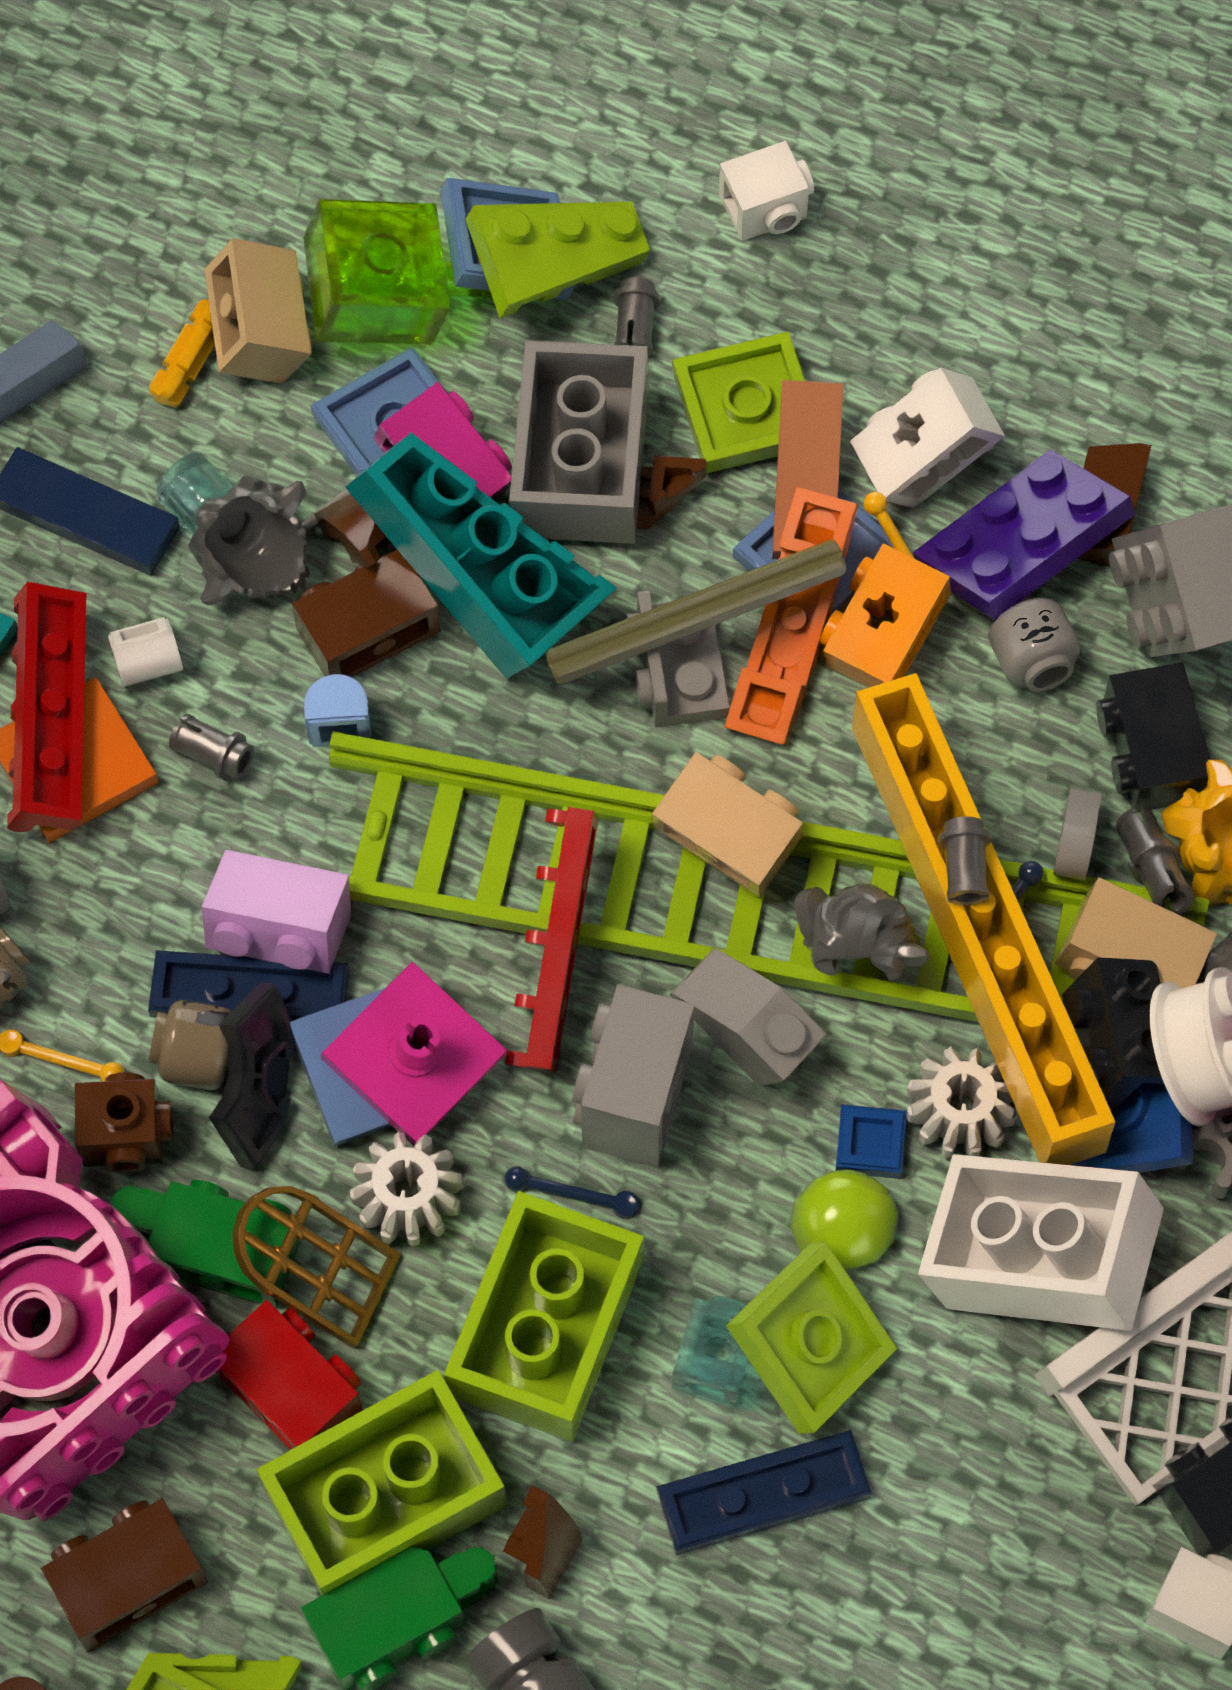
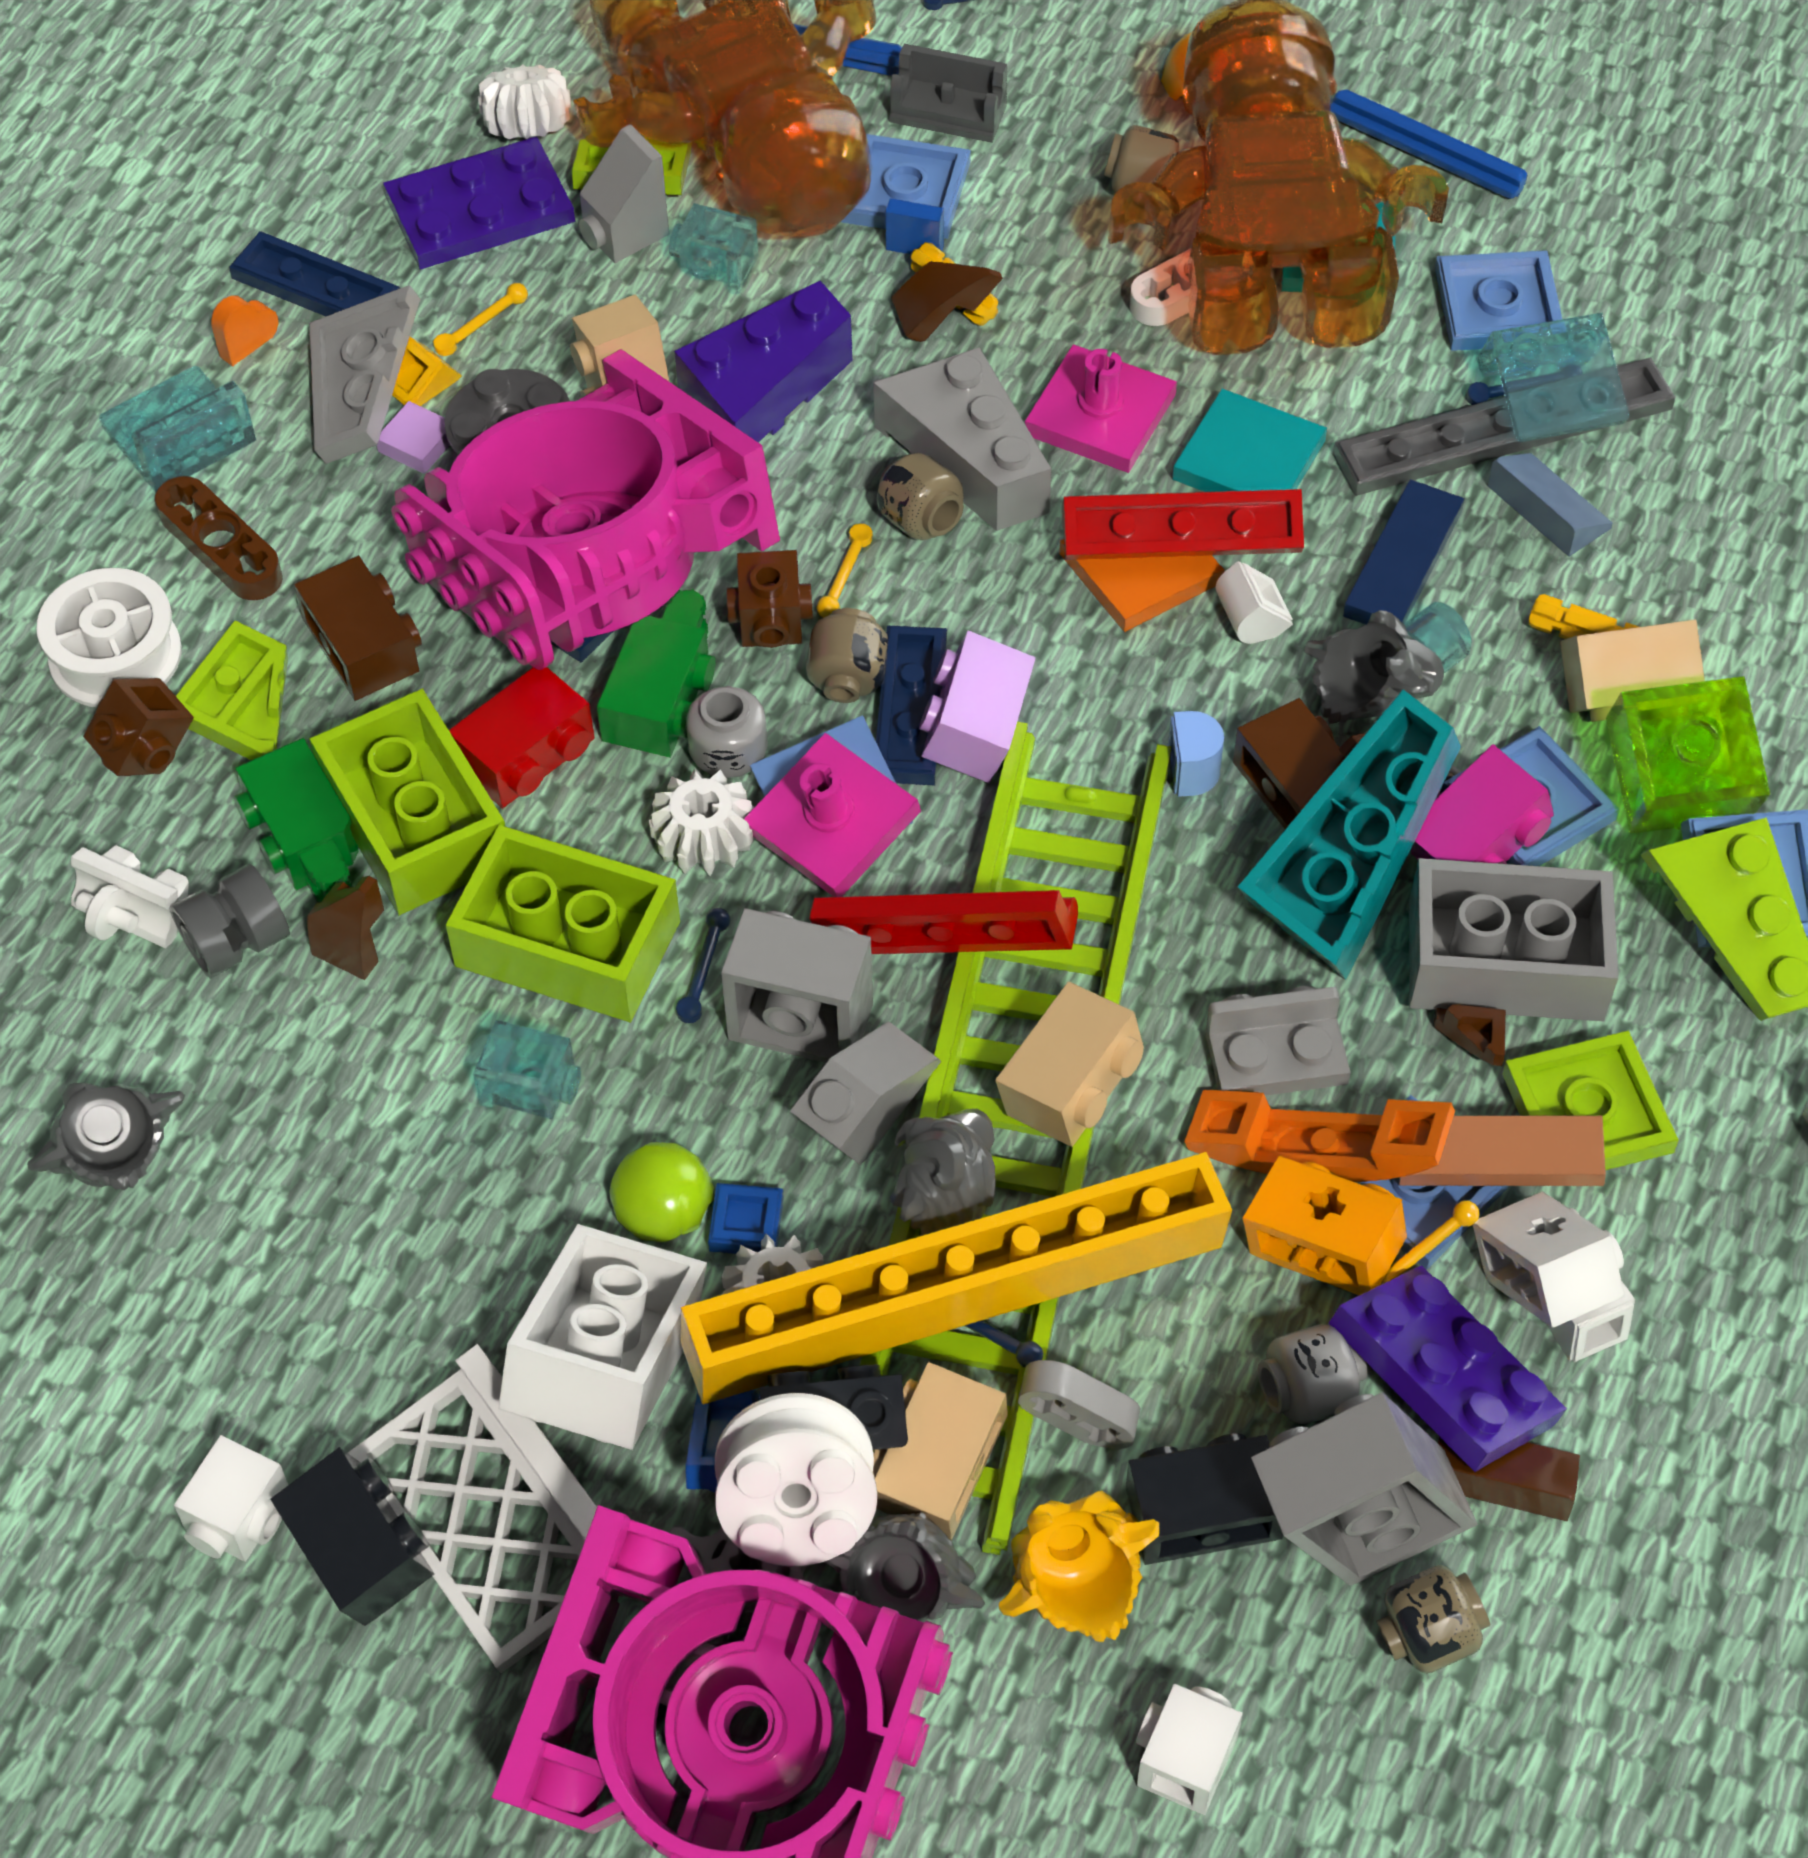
camera: 90 degrees right, 10 degrees down
(223, 752) = (1150, 670): flat silver pin -> none
(258, 1075) = (820, 700): black tile -> none
(304, 1142) = (726, 731): none -> light grey head
(321, 1283) = (608, 755): pearl gold window -> none
(636, 307) = (1682, 1004): flat silver pin -> none
(696, 611) = (1307, 1029): olive axle -> none
(763, 1492) = (393, 1124): dark blue tile -> none
(811, 1337) = (525, 1139): lime plate -> none
(965, 860) = (997, 1230): flat silver pin -> none
(1154, 860) = (1044, 1479): flat silver pin -> none

